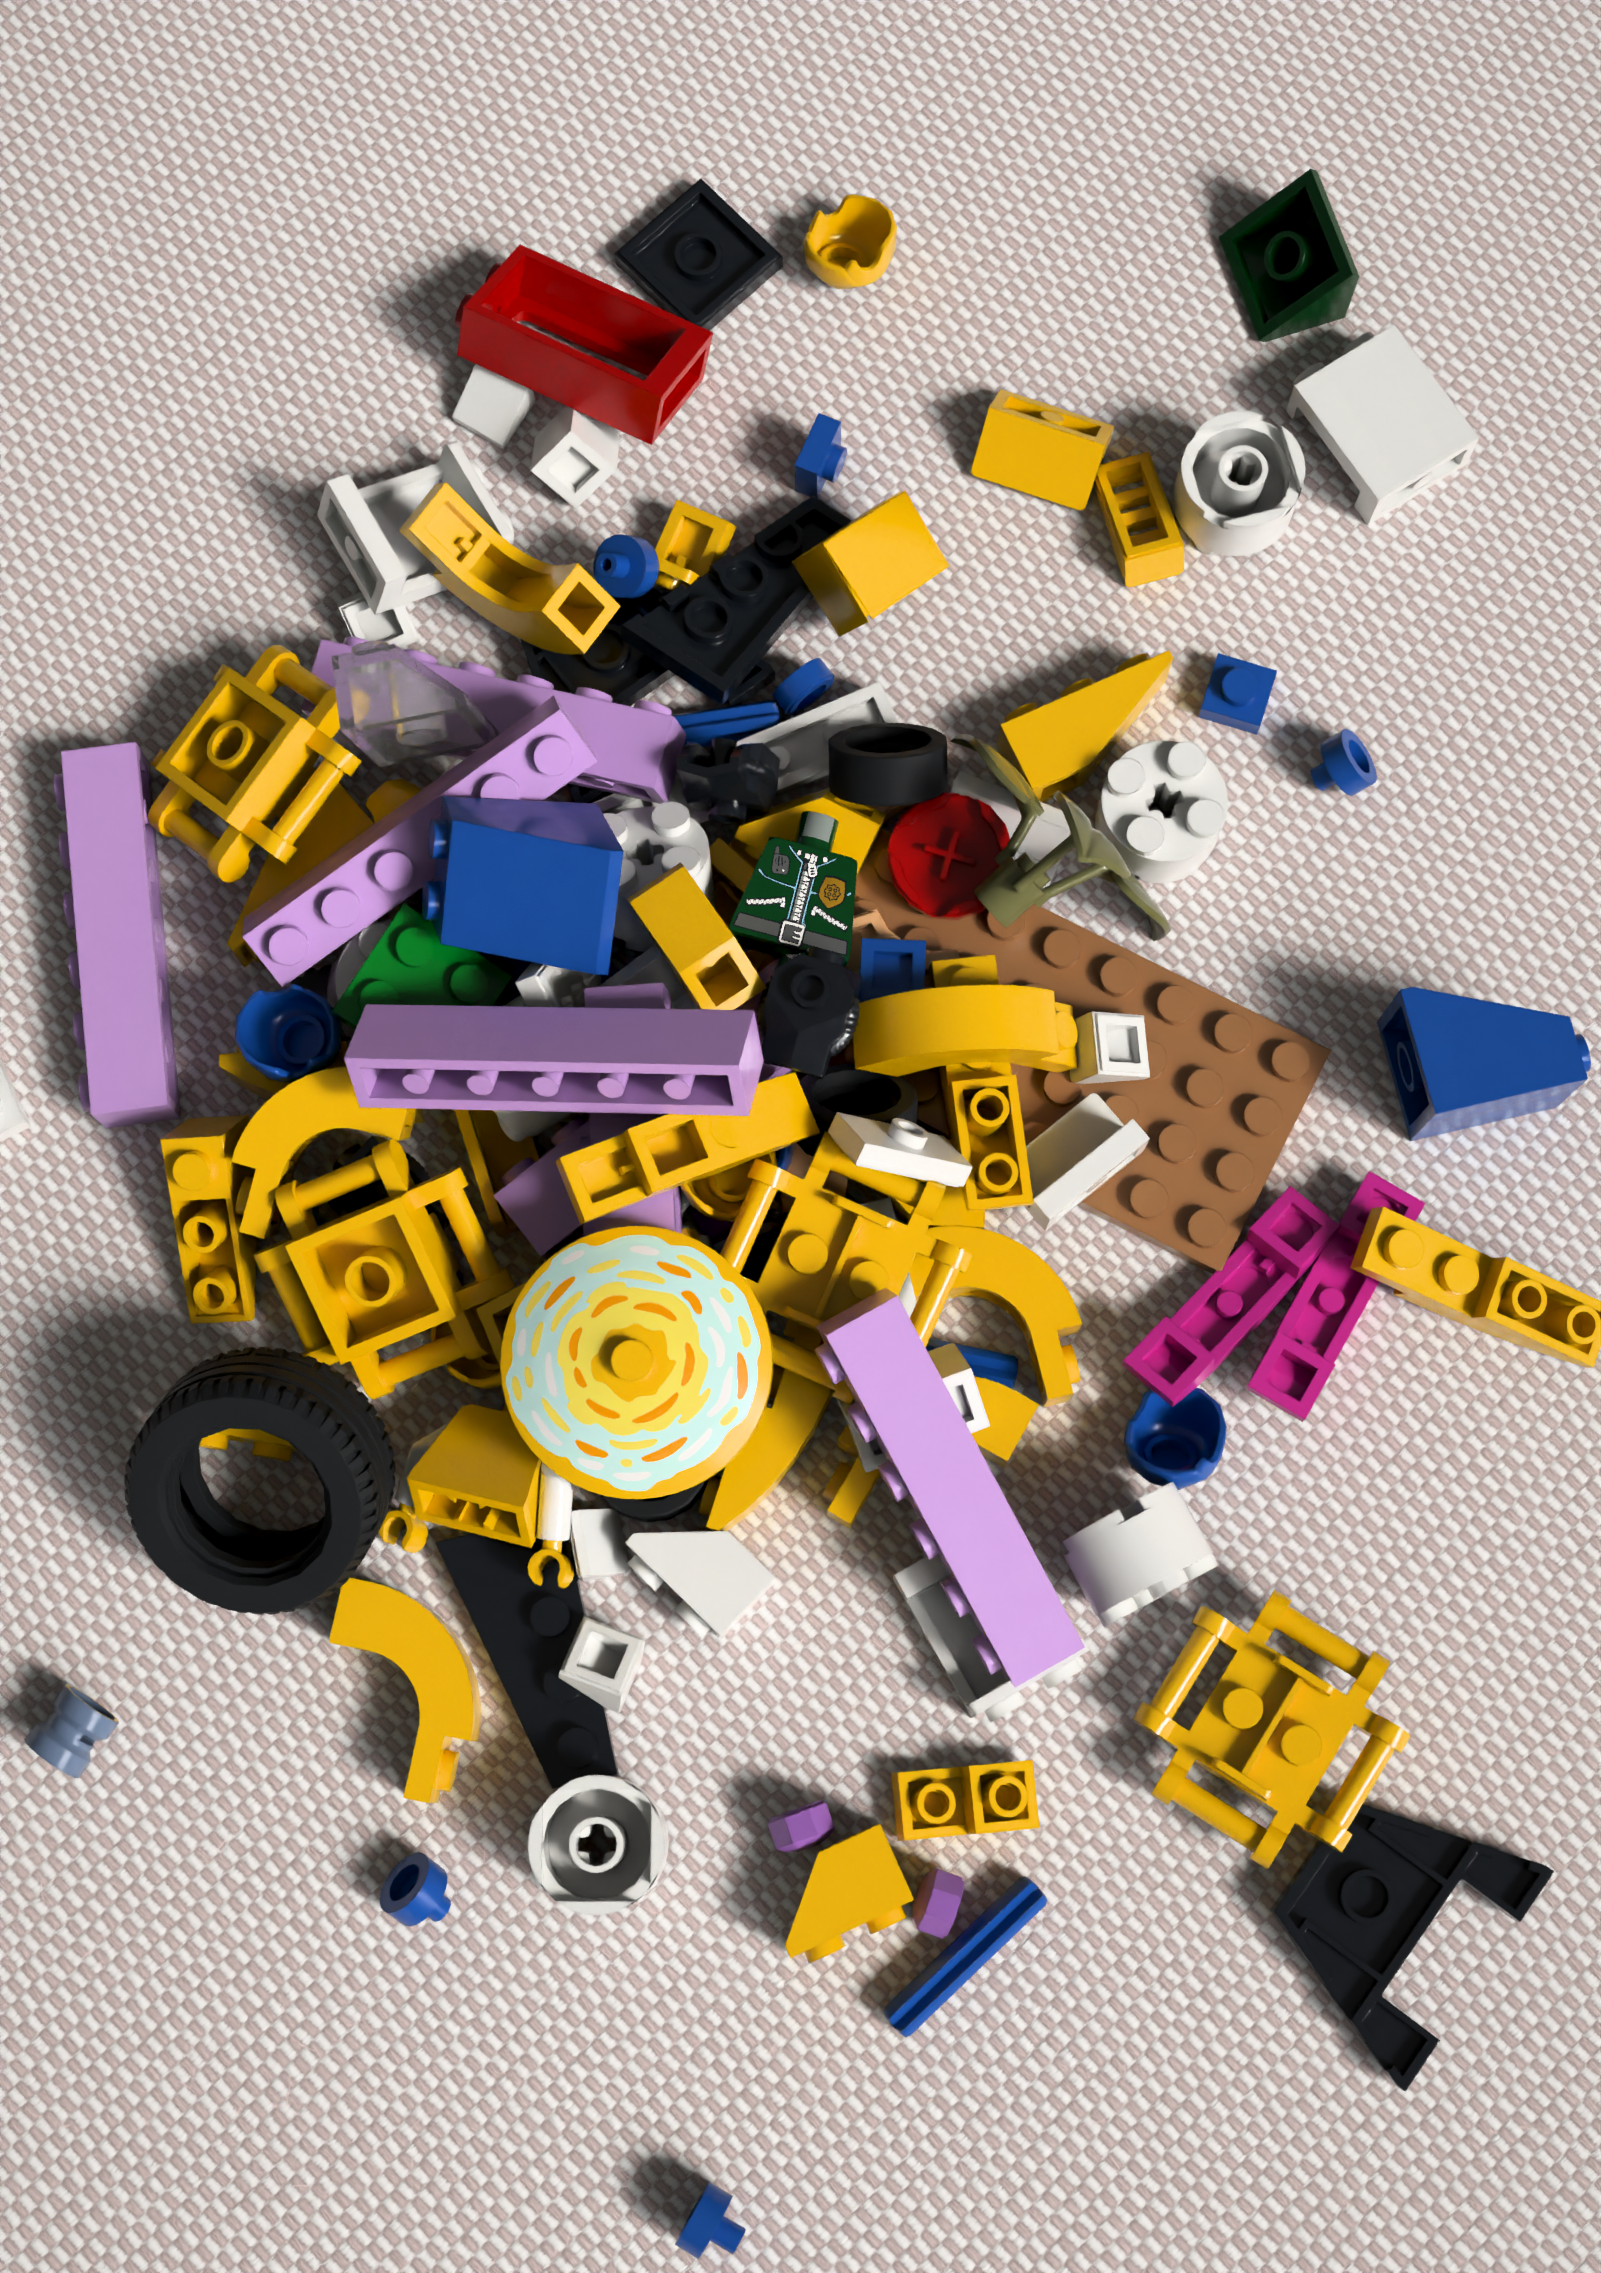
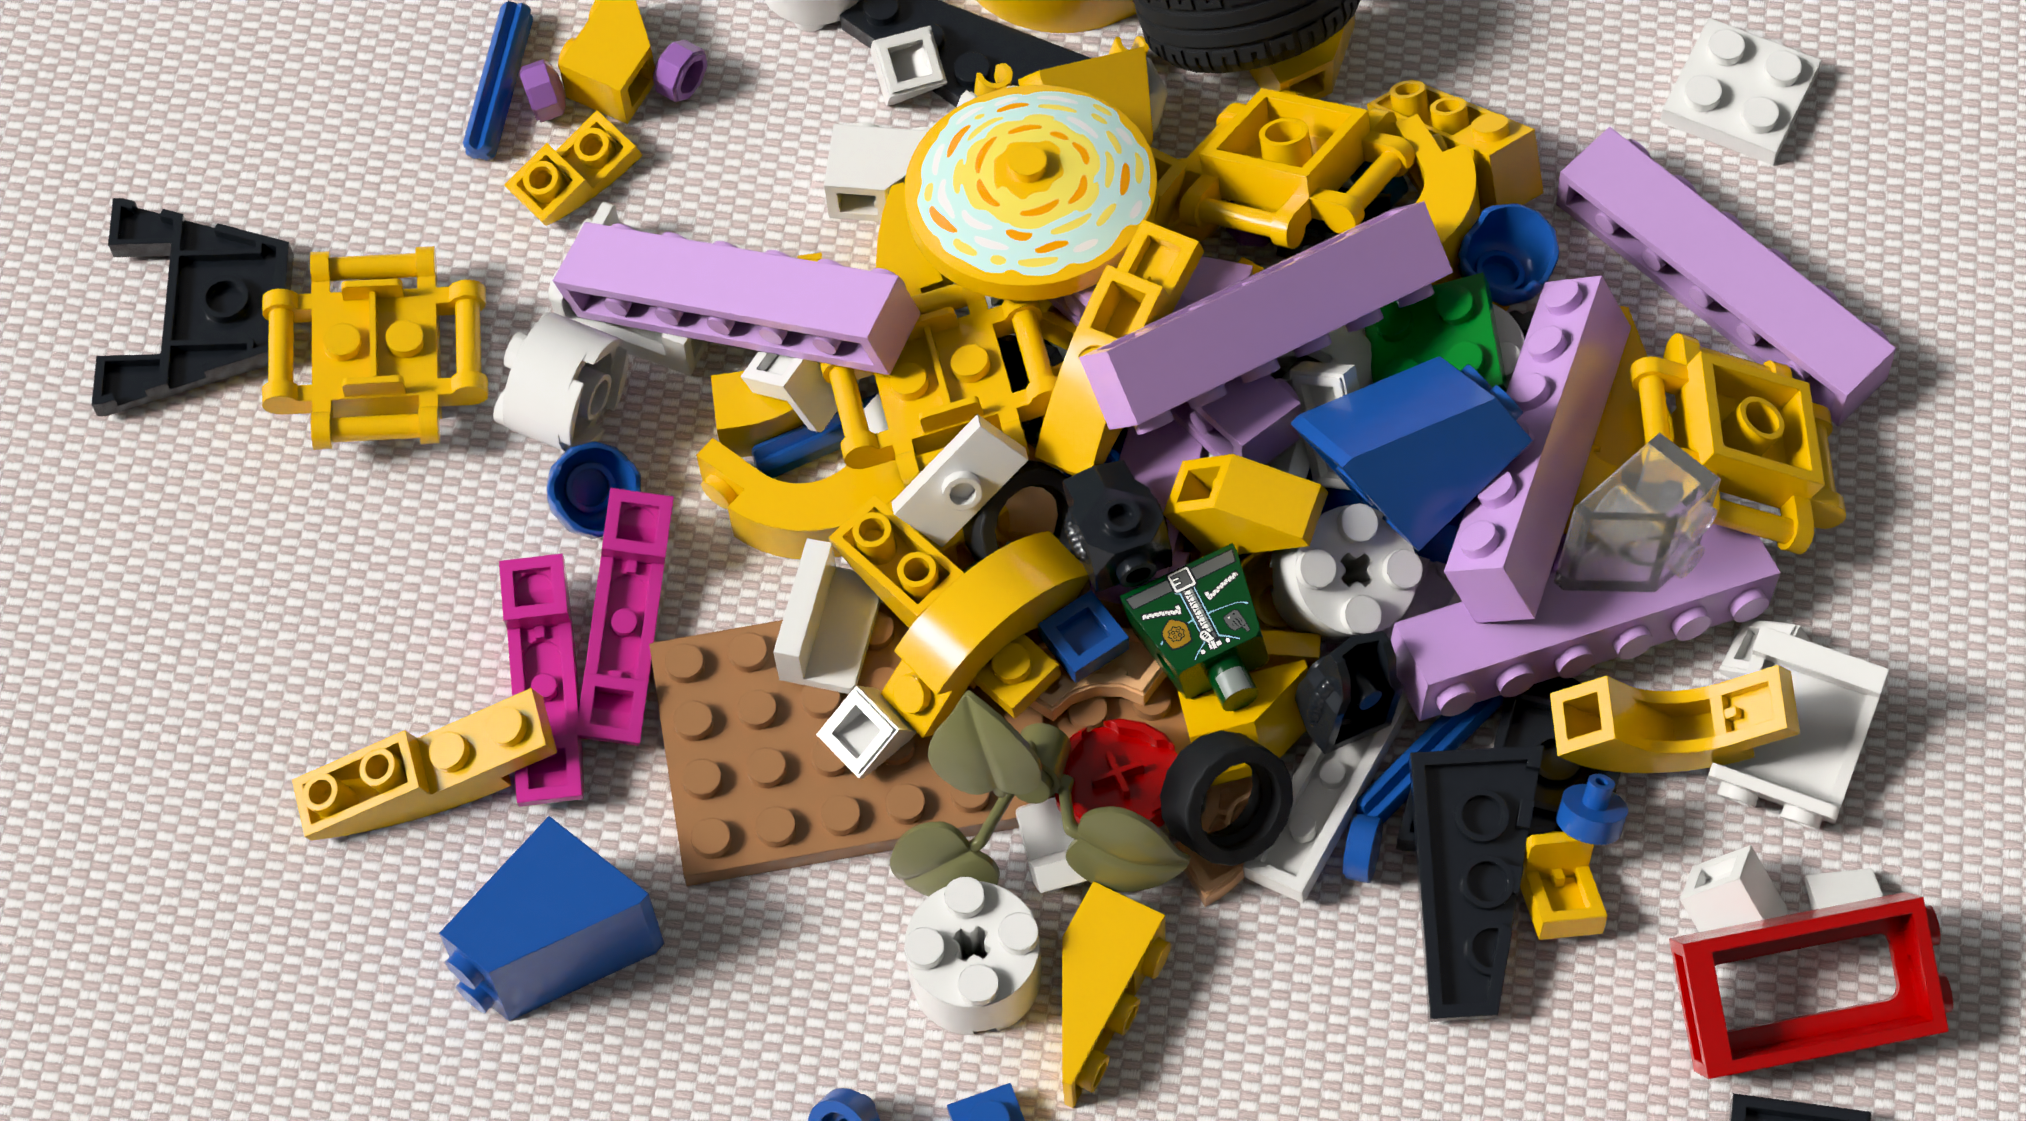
camera: 145 degrees right, 15 degrees down
(820, 457) = (1522, 1055): blue plate -> none
(871, 563) = (1387, 970): yellow piece -> none

